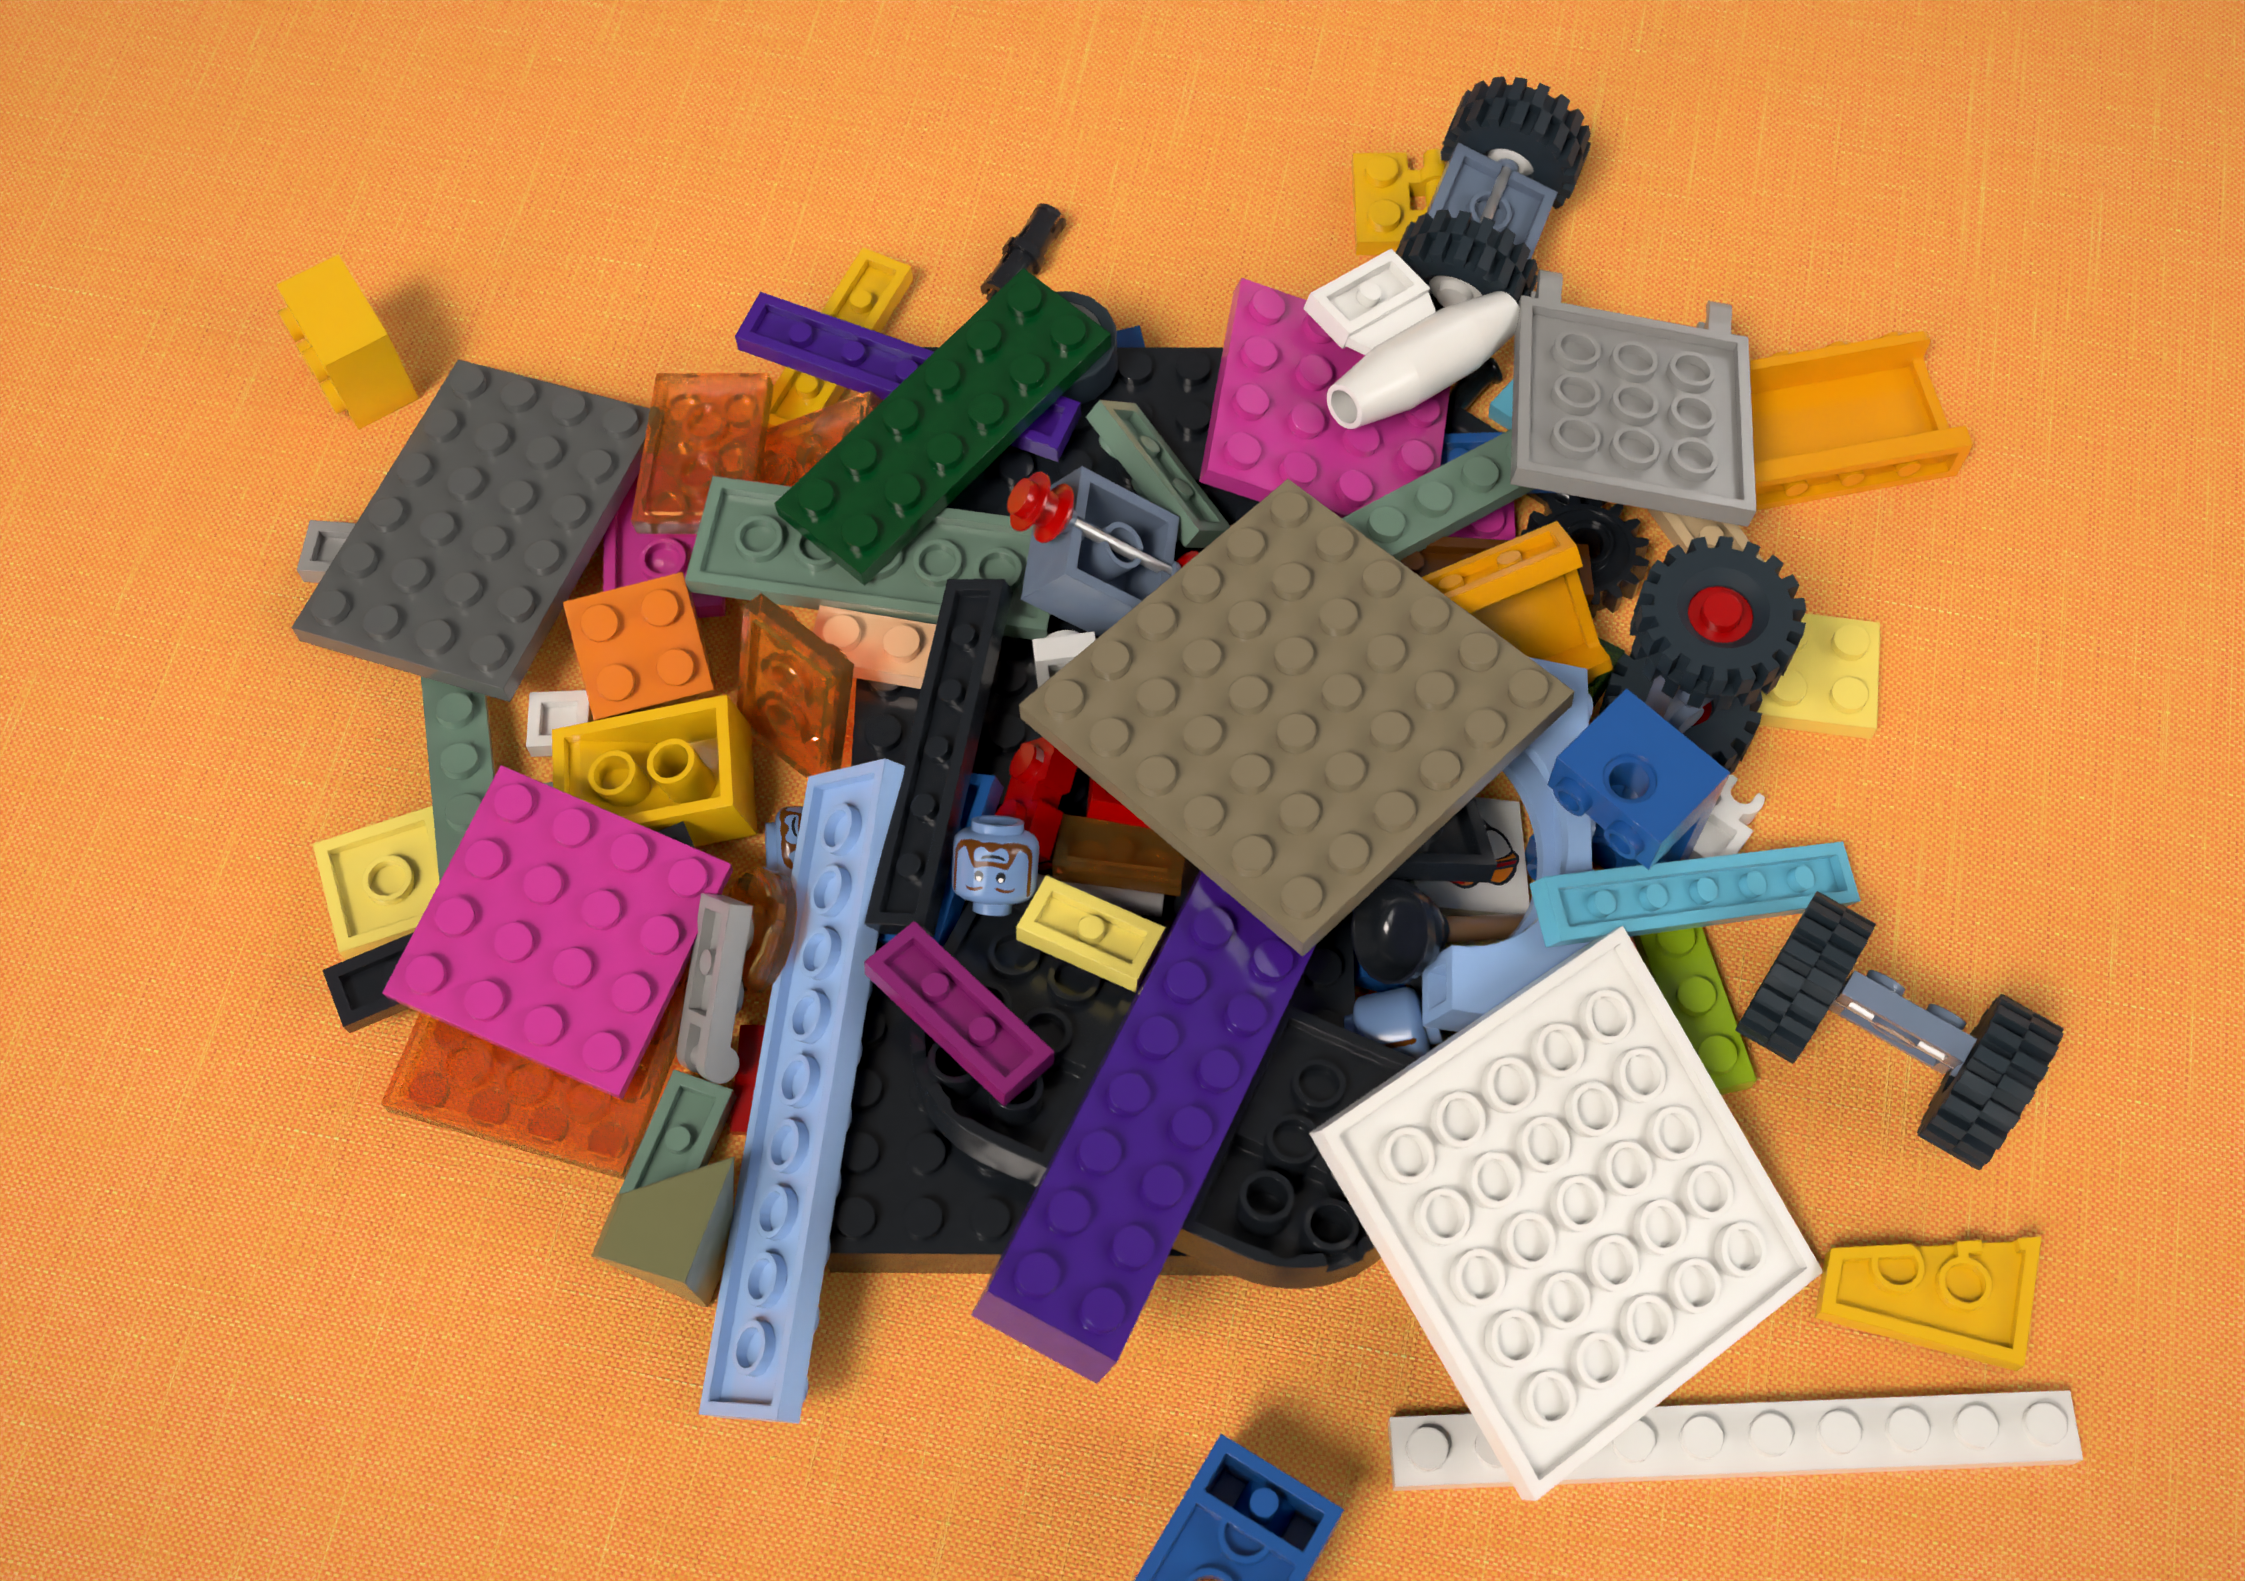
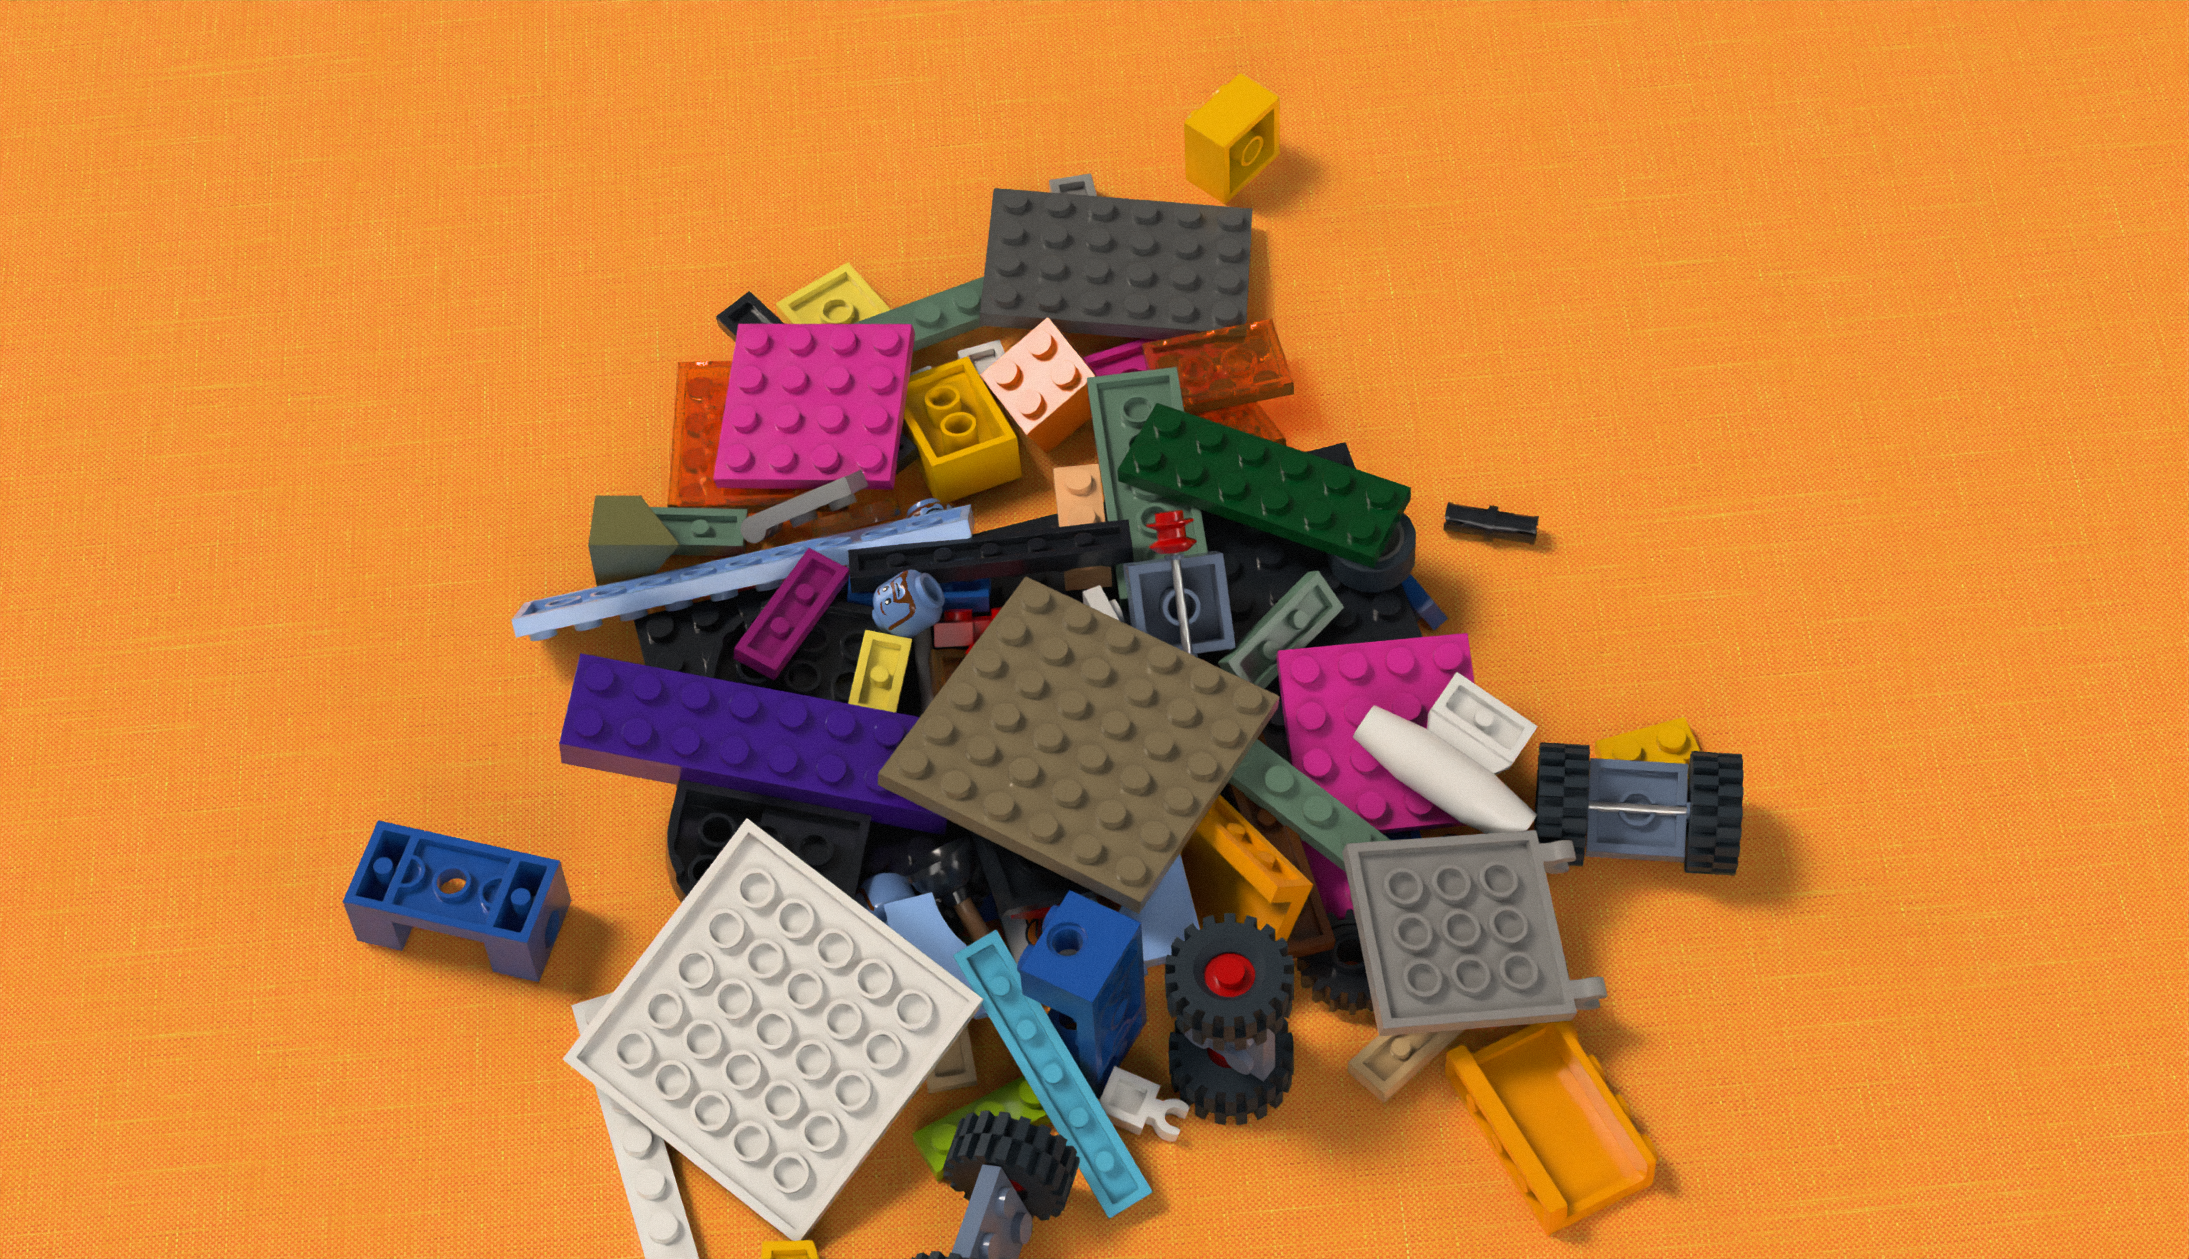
camera: 75 degrees right, 10 degrees down
(793, 688) = (1035, 469): clear orange plate -> none
(862, 297) = (1361, 427): yellow plate -> none
(869, 362) = (1314, 432): dark purple plate -> none
(1829, 680) = (1308, 1156): light yellow plate -> none

